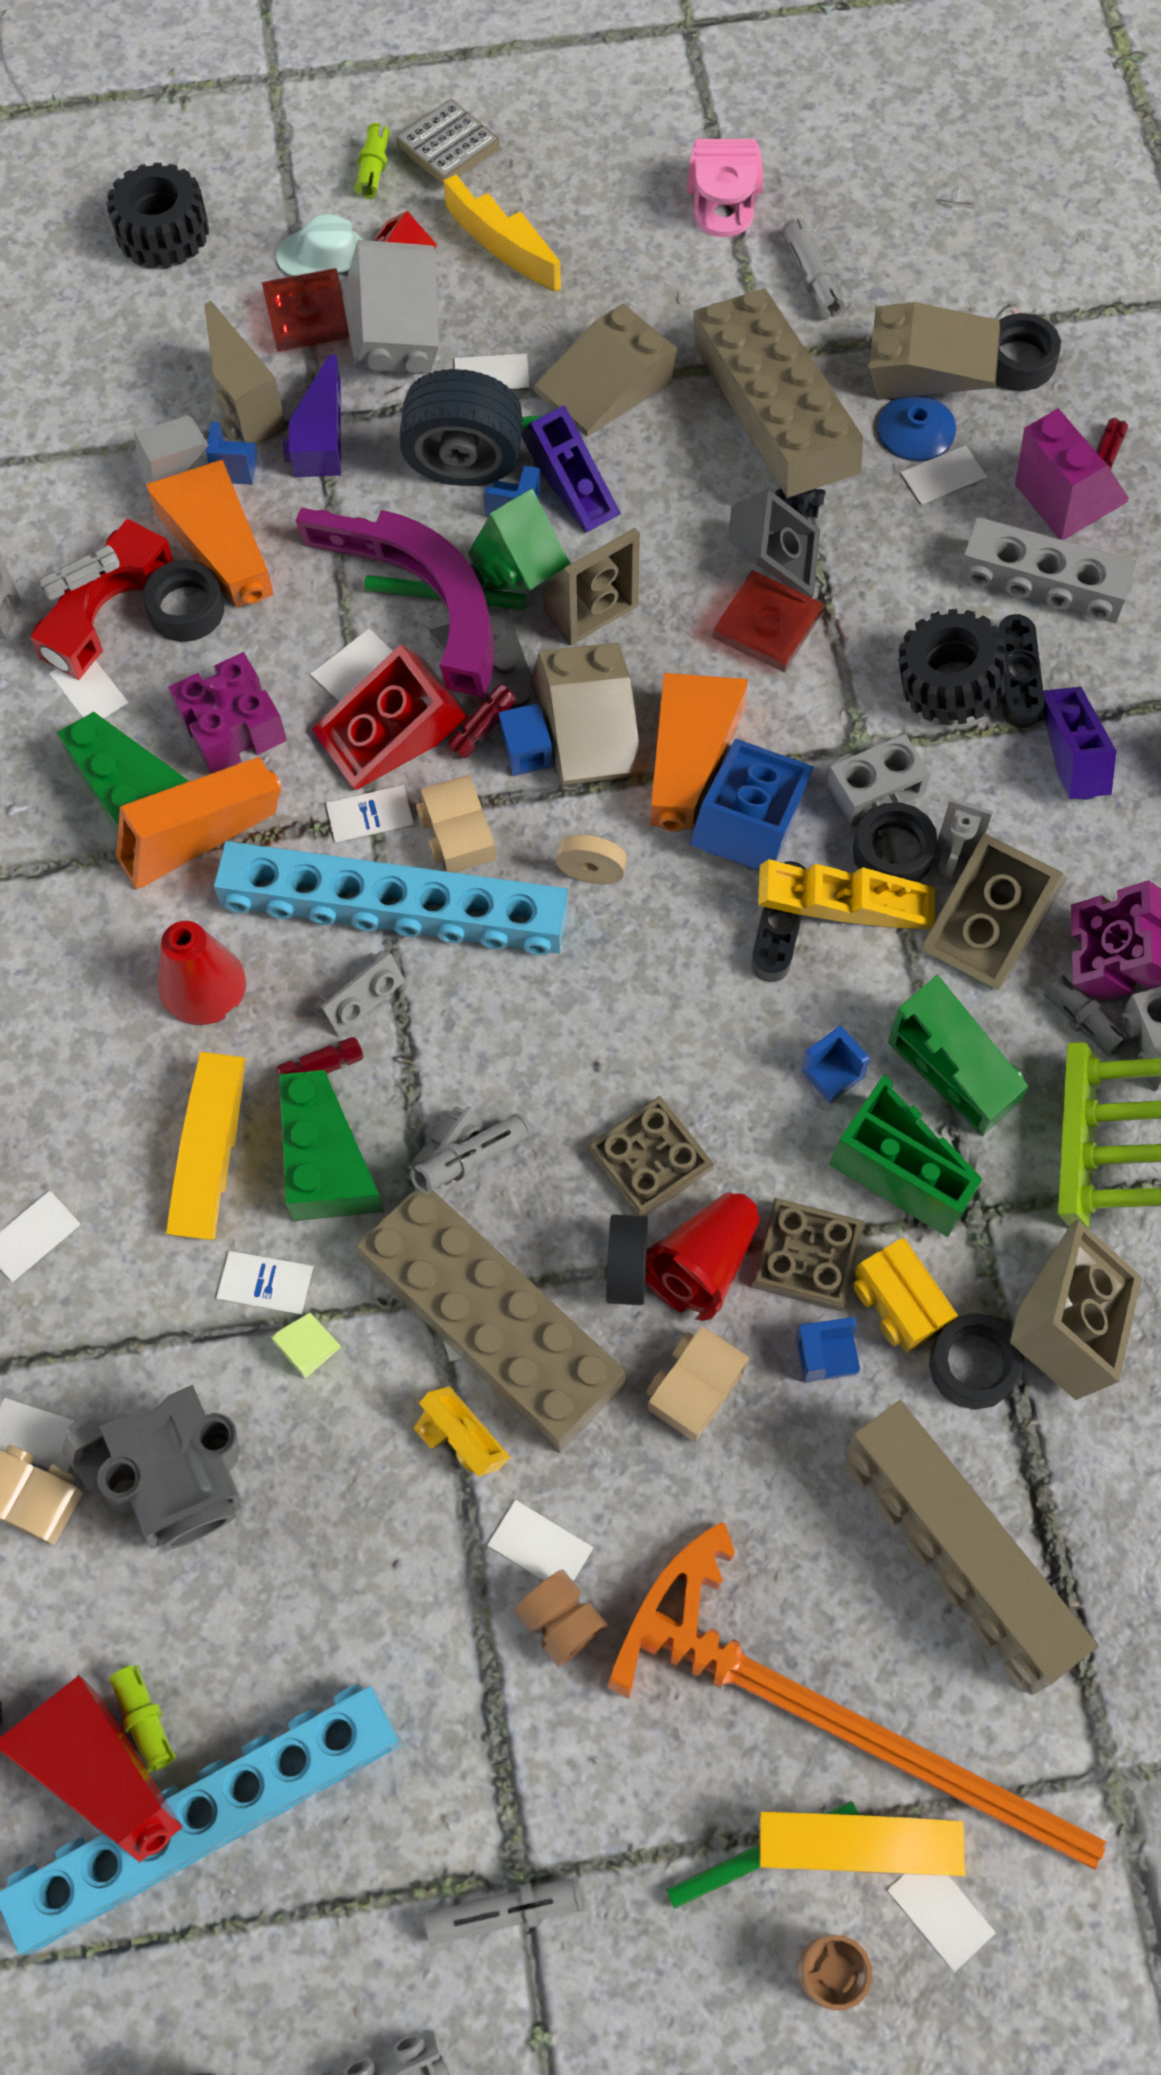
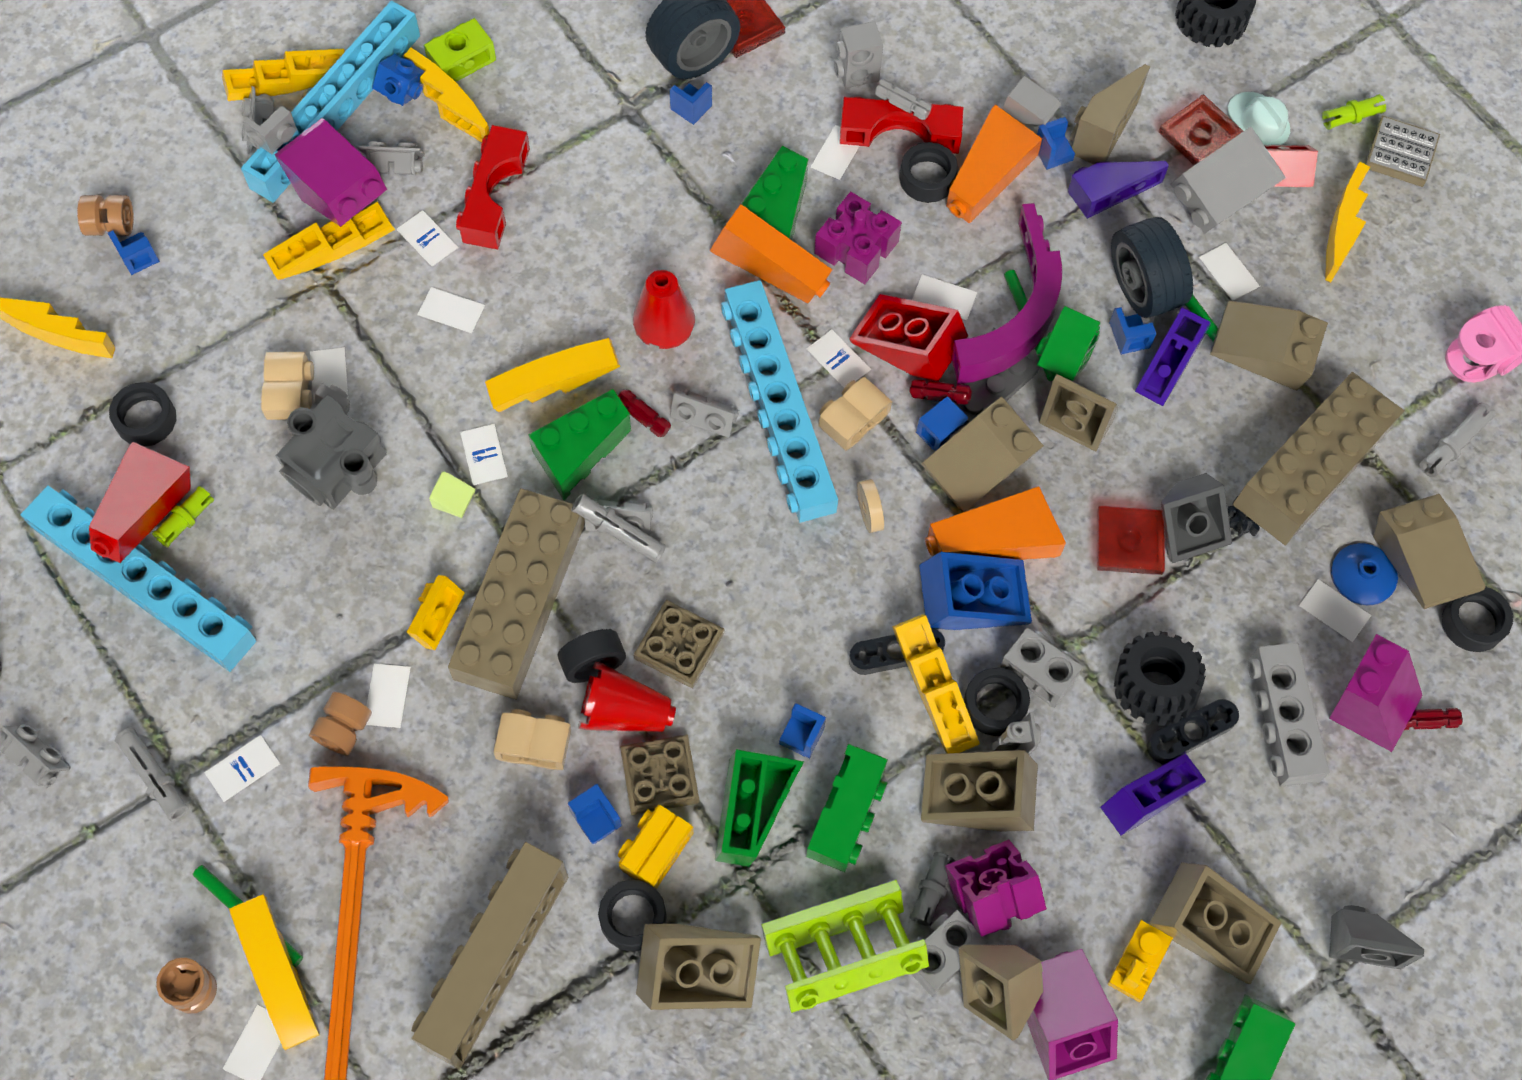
camera: 60 degrees right, 0 degrees up
(550, 1782) = (242, 768): none -> white sticker

